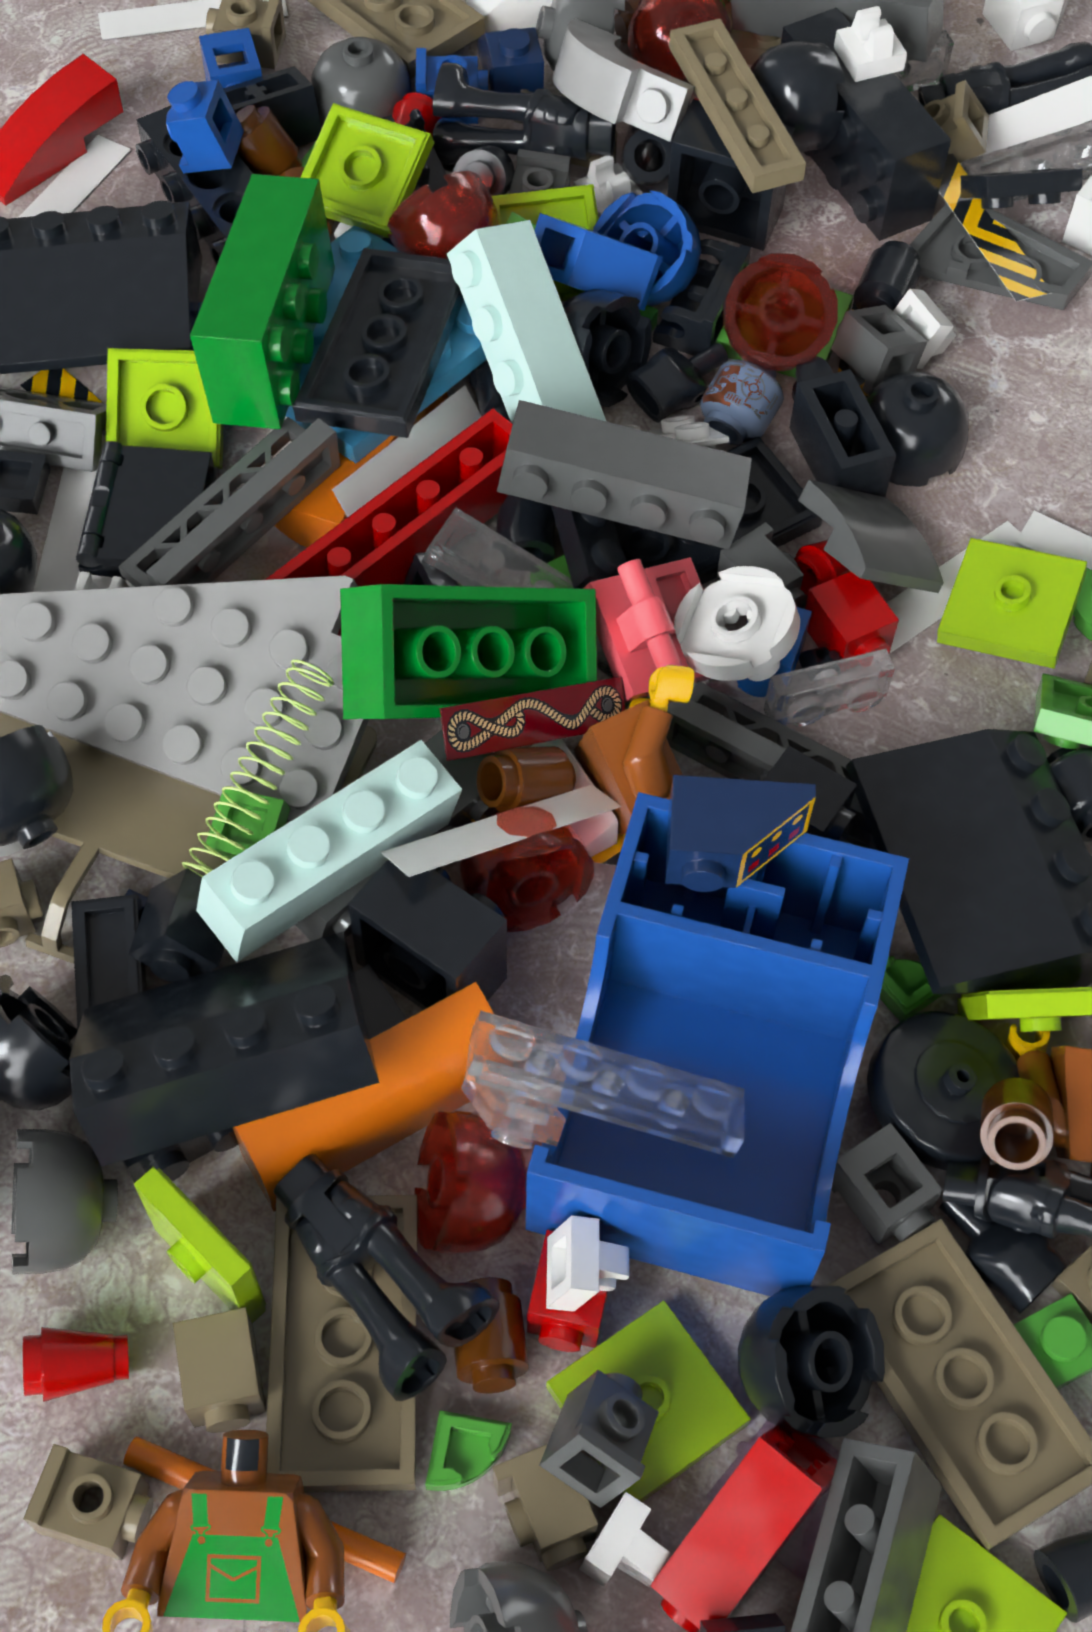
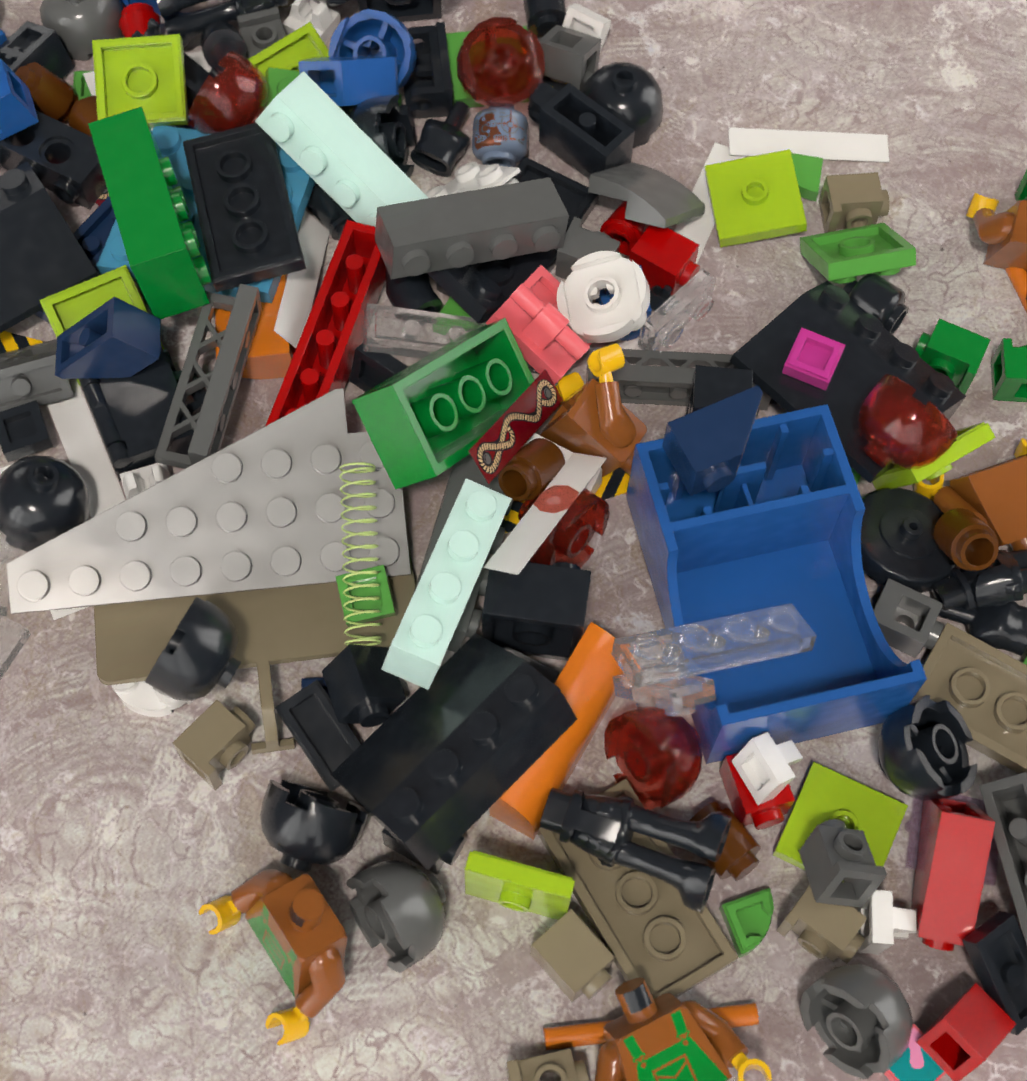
camera: 30 degrees left, 5 degrees up
(72, 1361) = (472, 1006): red cone -> none
(149, 424) = (109, 343): none -> dark blue slope
(947, 809) = (813, 359): none -> dark pink tile
(999, 938) = (902, 427): none -> clear red cylinder

